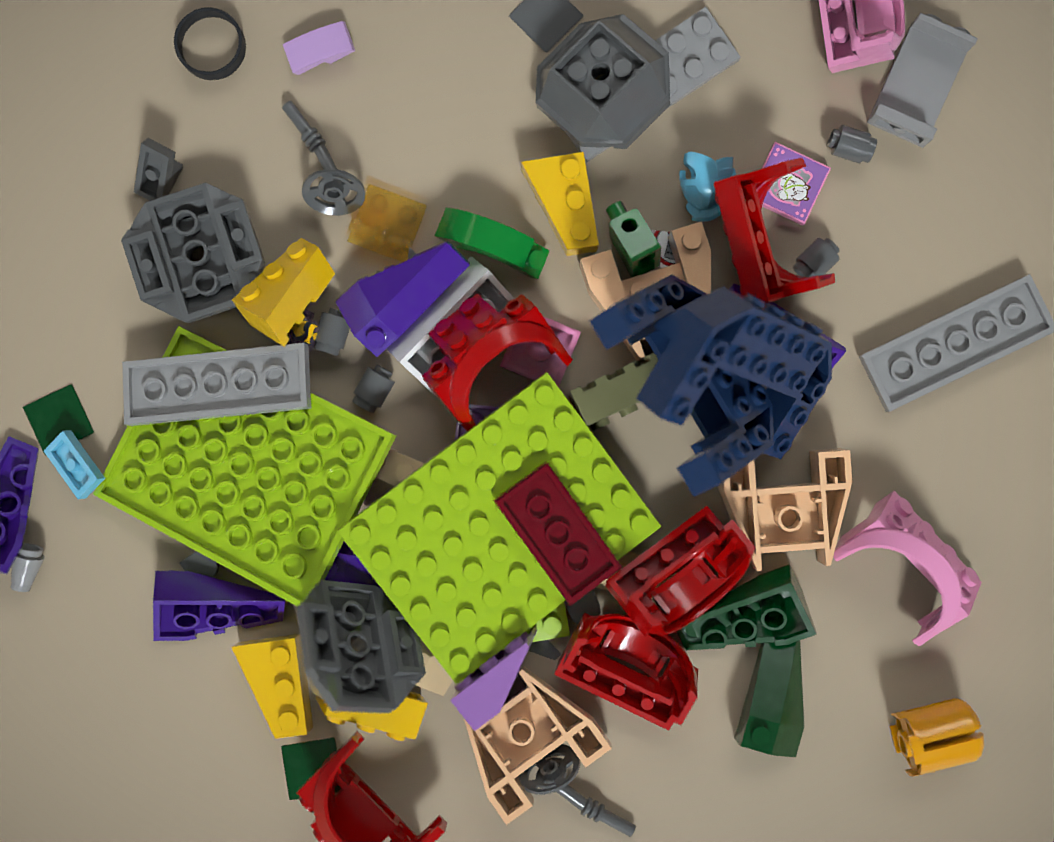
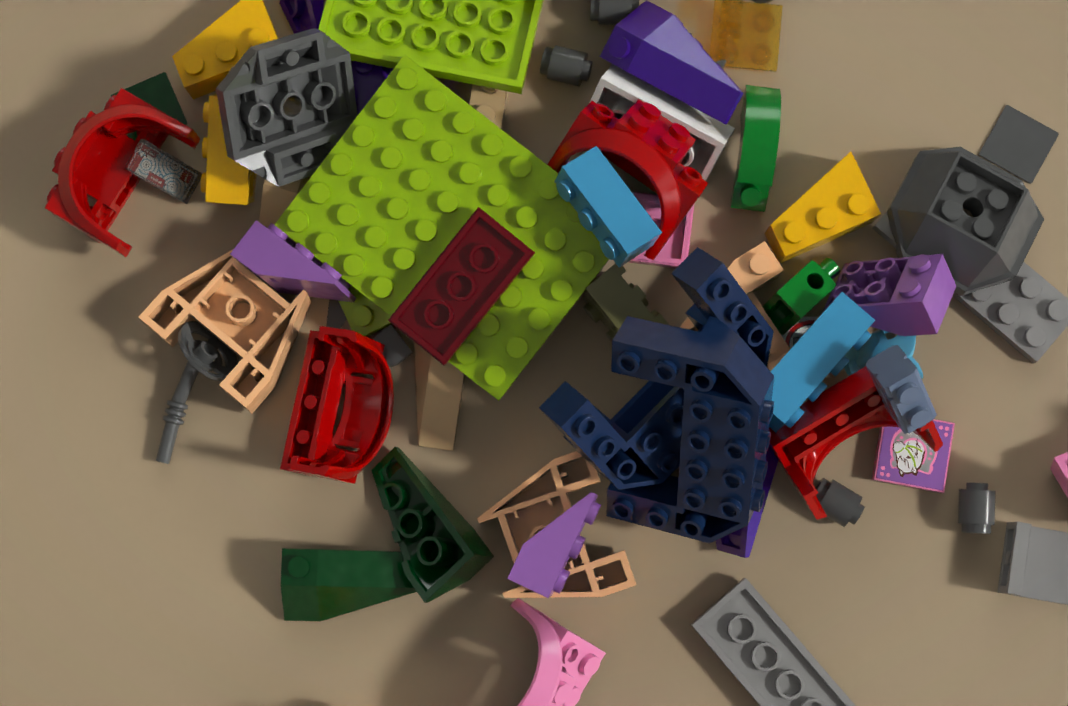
camera: 75 degrees right, 5 degrees down
(376, 770) = (163, 171): none -> clear smoke tile
(525, 389) = (607, 207): none -> dark azure brick
(657, 161) = (900, 293): none -> medium lavender slope
(692, 588) = (438, 455): red piece -> none
(700, 245) = (815, 356): none -> dark azure brick
(754, 179) = (901, 389): none -> sand blue brick
(807, 518) = (545, 555): none -> medium lavender slope

